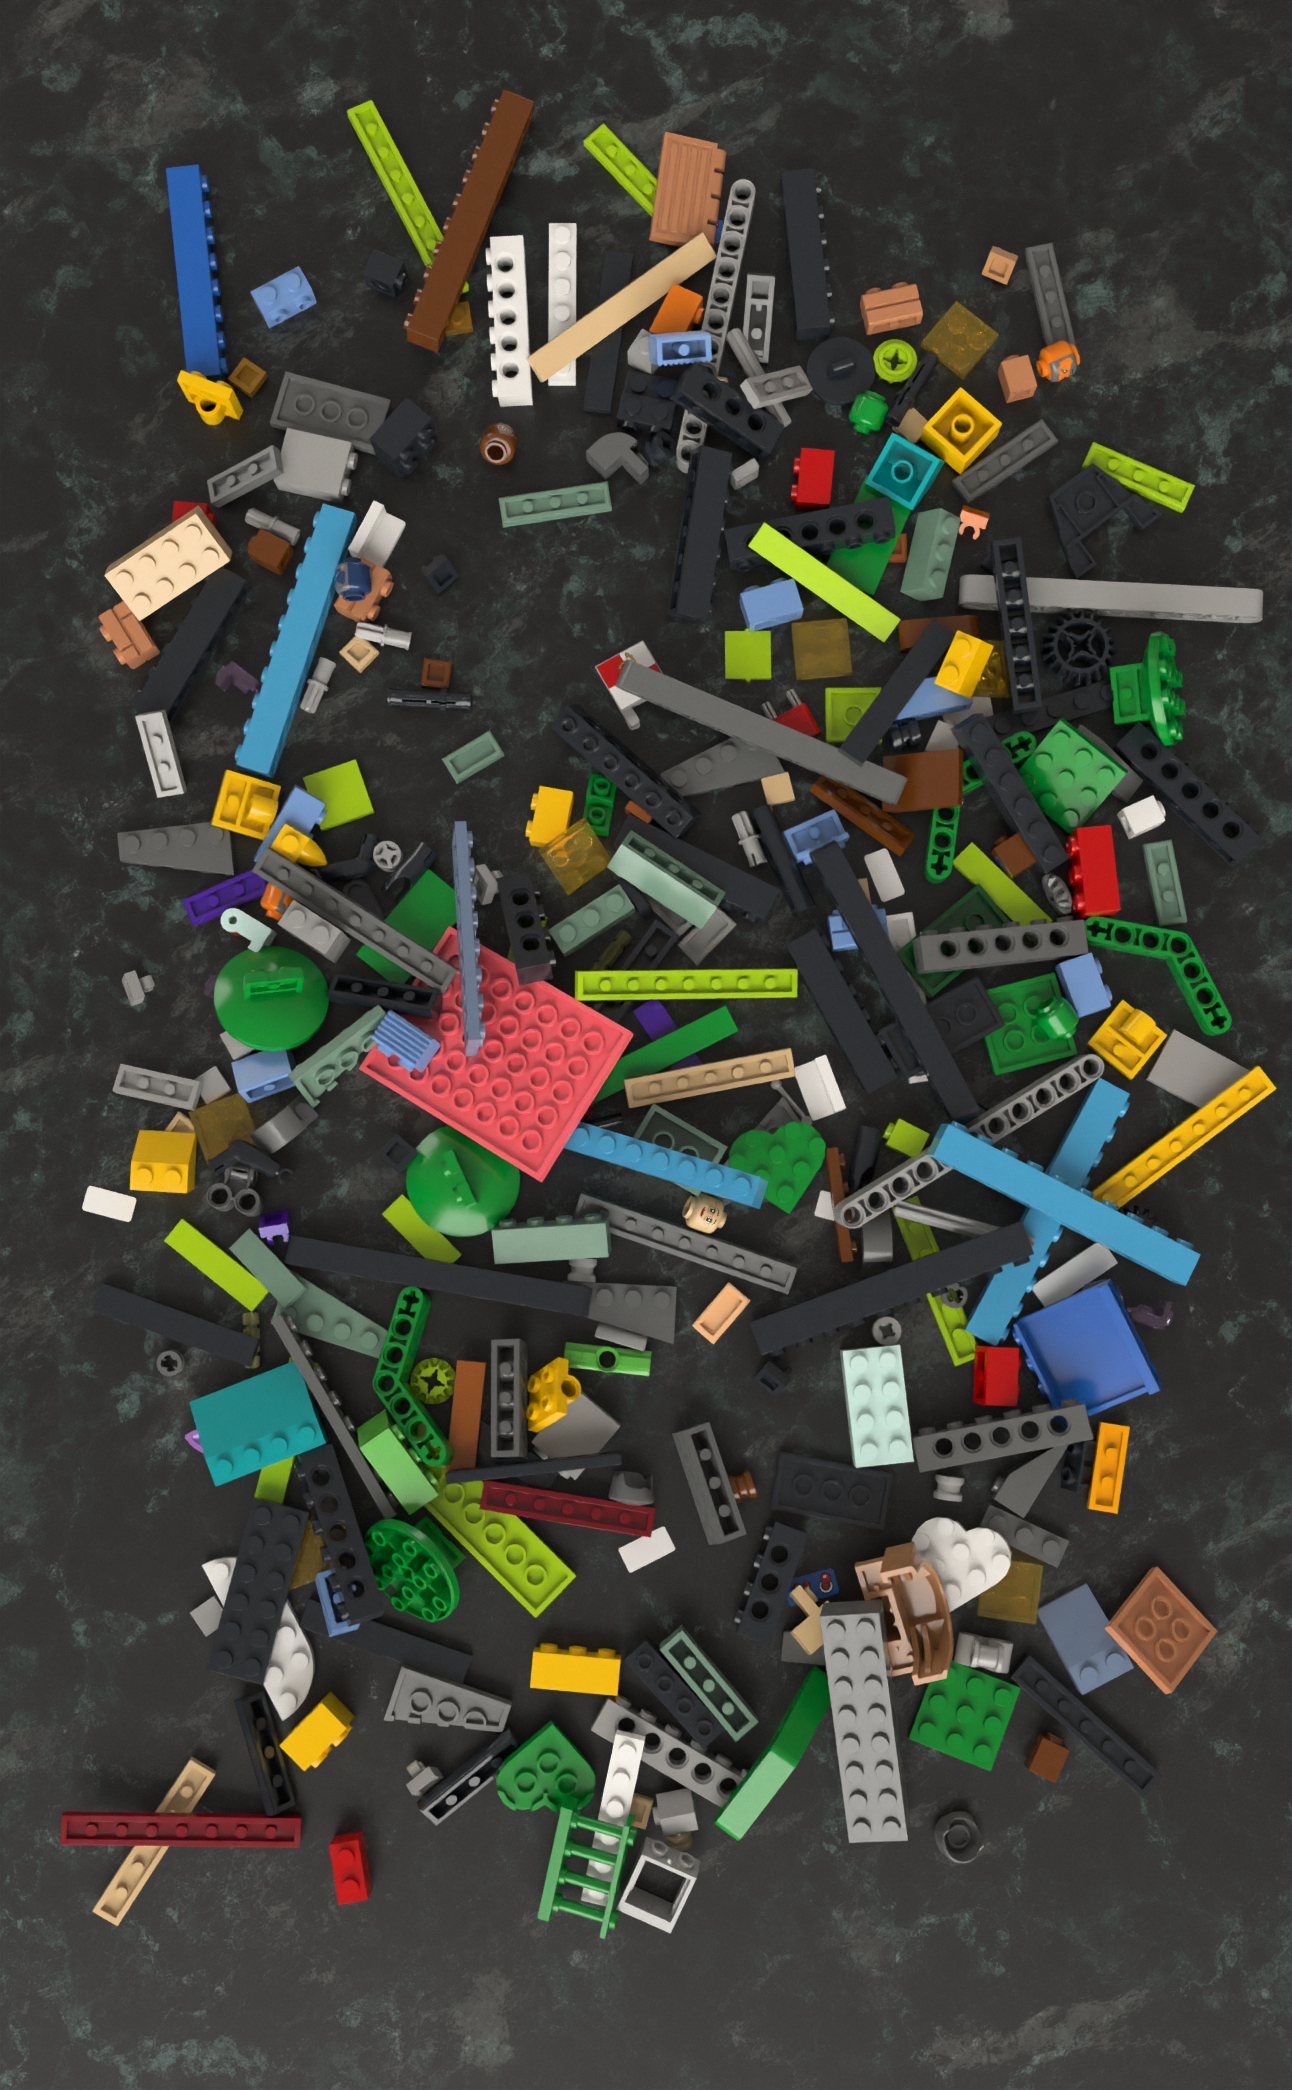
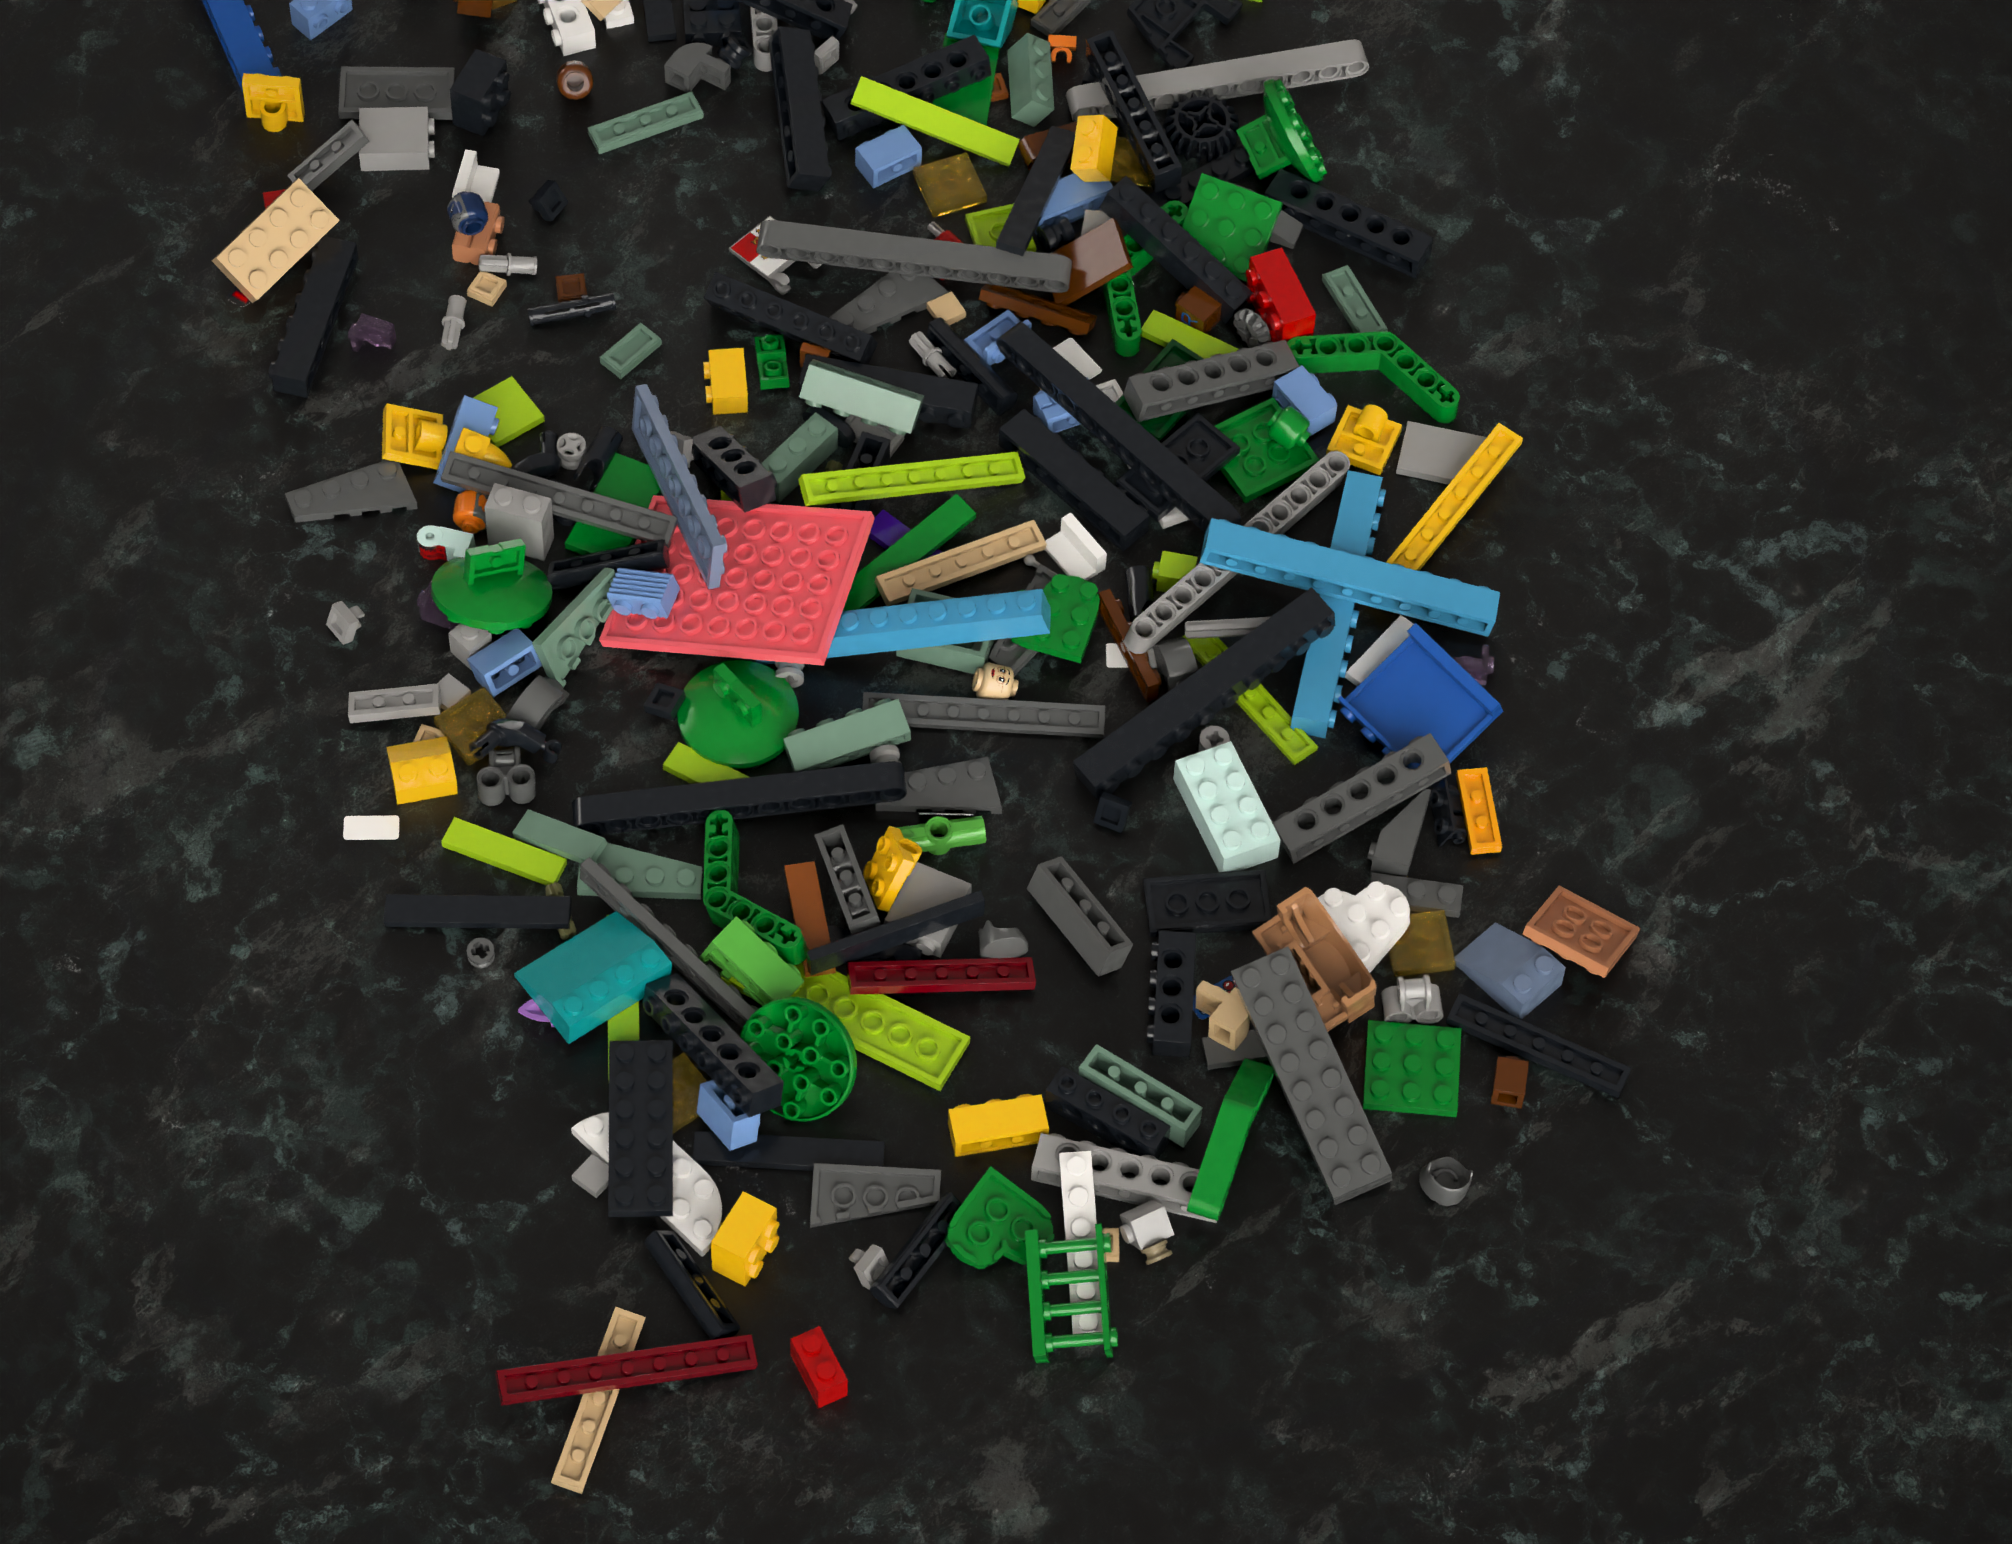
camera: 25 degrees left, 25 degrees down
(129, 635) = (246, 320): nougat brick -> none
(161, 753) = (313, 408): plate -> none
(223, 896) = (403, 531): dark purple tile -> none
(248, 377) = (309, 78): pearl gold plate -> none
(270, 551) = (371, 219): reddish brown brick -> none
(272, 525) = (366, 198): light grey axle -> none
(275, 1224) = (554, 798): dark purple tile -> none
(296, 643) = (422, 286): dark azure brick -> none
(445, 1375) = (775, 896): lime gear -> none
(575, 856) = (763, 403): clear yellow plate -> none
(637, 1901) = (1147, 1325): light grey window -> none
(646, 1549) = (1035, 1004): white sticker -> none
(702, 942) = (919, 444): light grey tile -> none
(721, 1313) = (1041, 772): light nougat tile -> none
(742, 1486) = (1119, 912): reddish brown wheel -> none
(747, 655) = (878, 206): lime piece -> none
(814, 480) = (894, 42): red brick -> none
(948, 1487) = (1325, 865): light grey wheel -> none
(952, 1304) = (1269, 687): dark grey bush -> none
(996, 1375) = (1336, 751): red brick -> none
(1142, 816) = (1311, 251): white brick -> none

